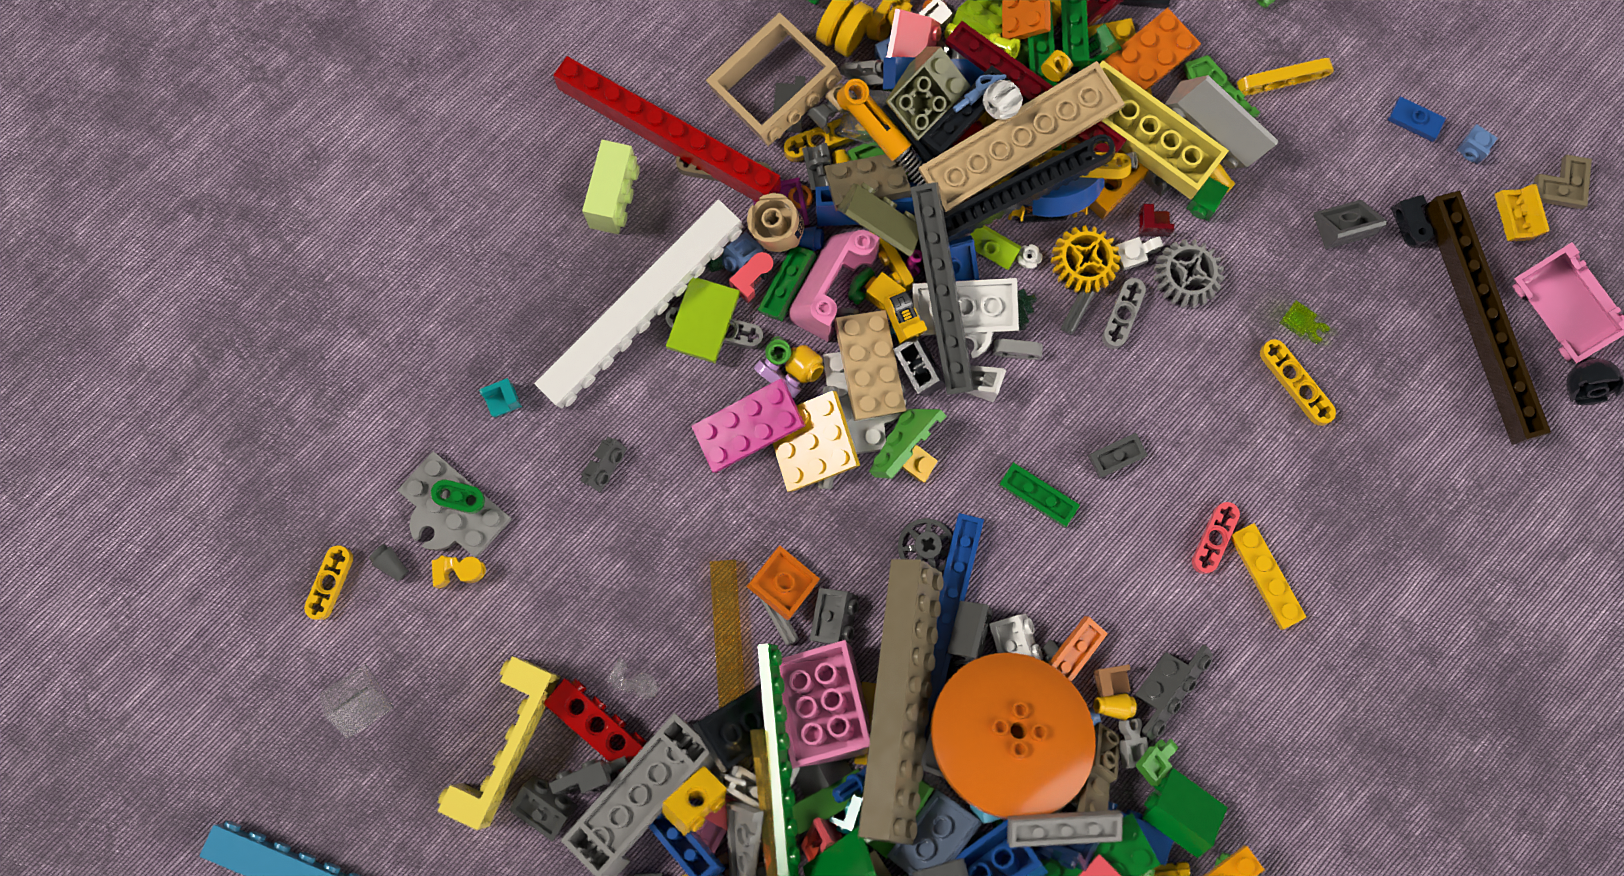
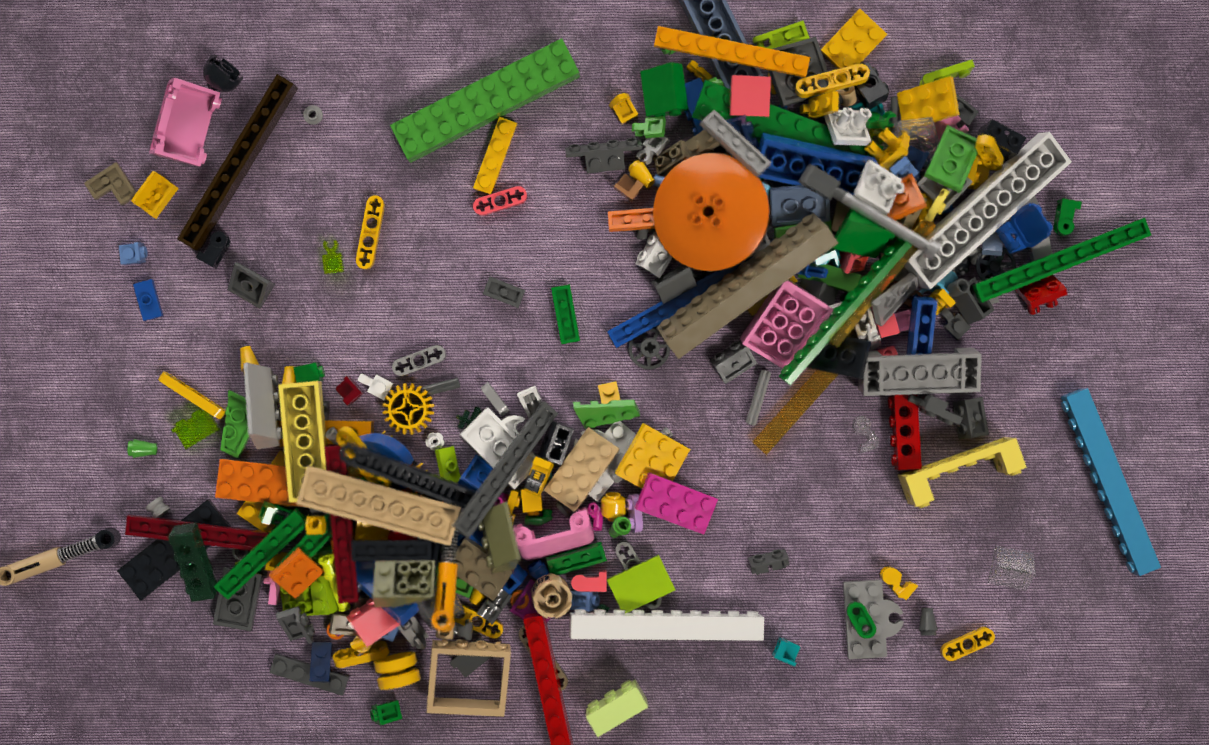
camera: 135 degrees left, 10 degrees up
(700, 786) = (886, 346): yellow brick -> none
(783, 582) = (741, 405): orange plate -> none
(815, 342) = (595, 513): none -> dark pink arm
(980, 90) = (374, 553): medium blue hand -> none
(1002, 99) = (369, 534): white piece -> none
(1197, 277) = (366, 353): light grey gear -> none
(1202, 754) = (623, 108): none -> yellow tile
(1248, 52) = (196, 428): none -> clear neon green bracket
(1276, 159) = (247, 356): none -> yellow cone
(1336, 619) = (485, 100): none -> bright green brick
(1464, 437) = (317, 119): none -> light grey plate

